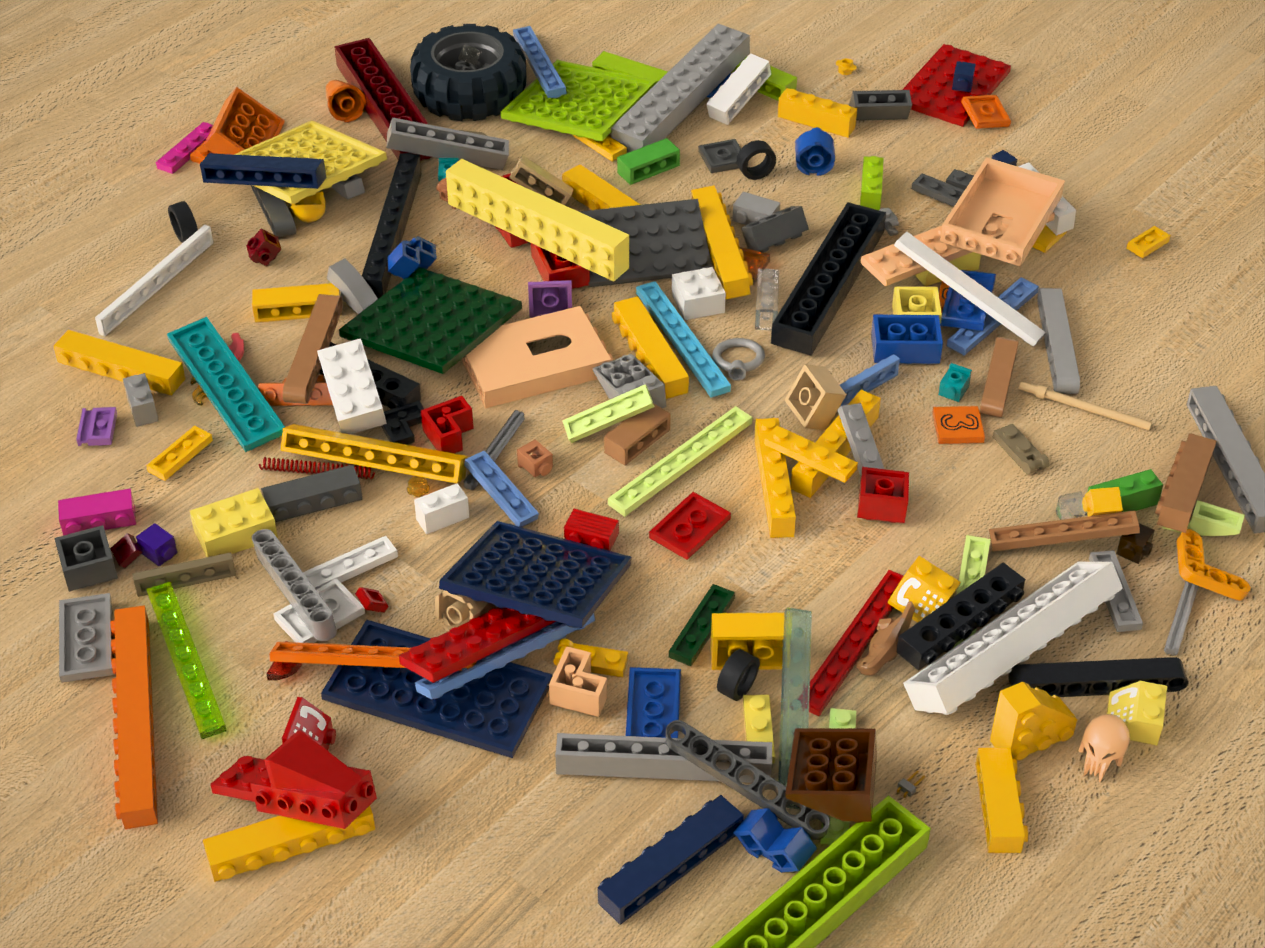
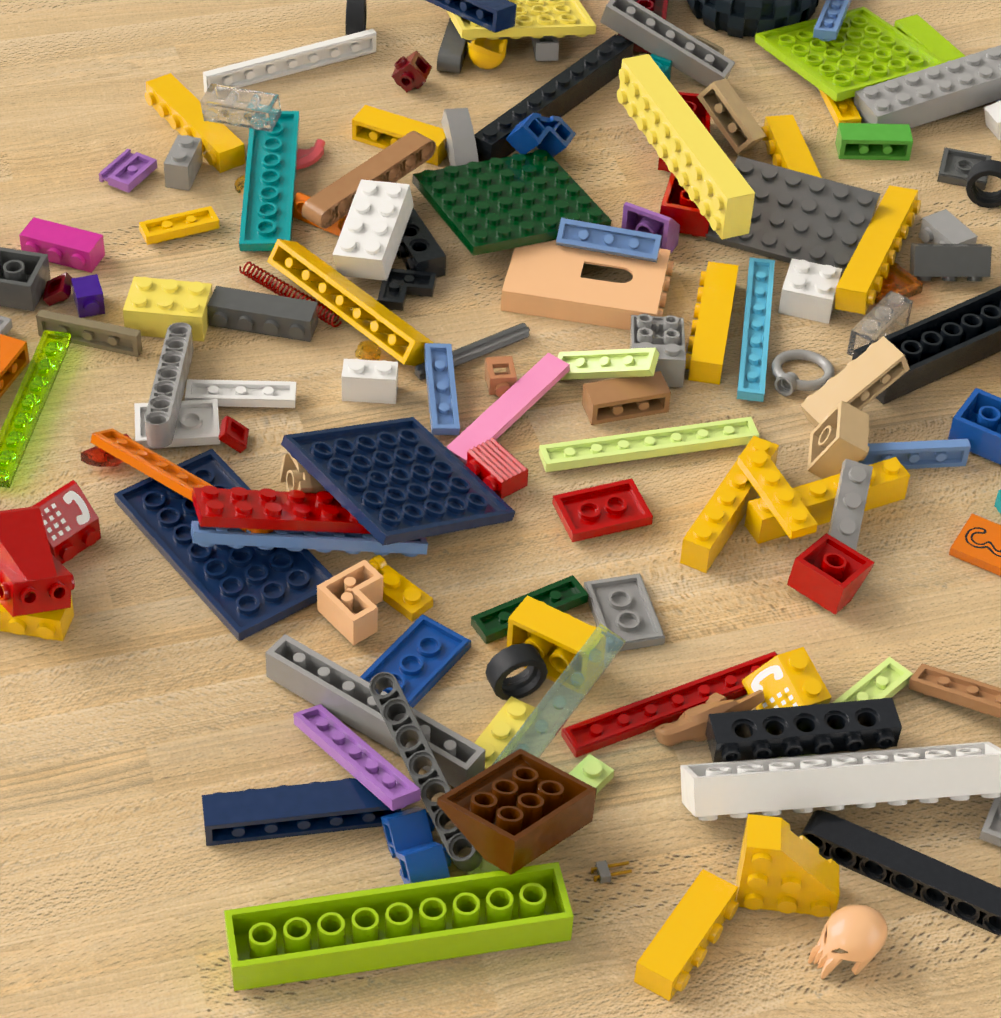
camera: 30 degrees right, 0 degrees up
(160, 333) = (241, 107): none -> clear brick
(446, 423) = (441, 303): red brick -> none
(535, 317) = (609, 240): none -> medium blue plate
(561, 480) = (510, 405): none -> bright pink tile
(685, 796) = (357, 757): none -> medium lavender plate
(764, 591) = (626, 610): none -> light grey tile
(794, 349) = (859, 381): none -> tan brick
(1141, 708) = (926, 930): light yellow slope -> none

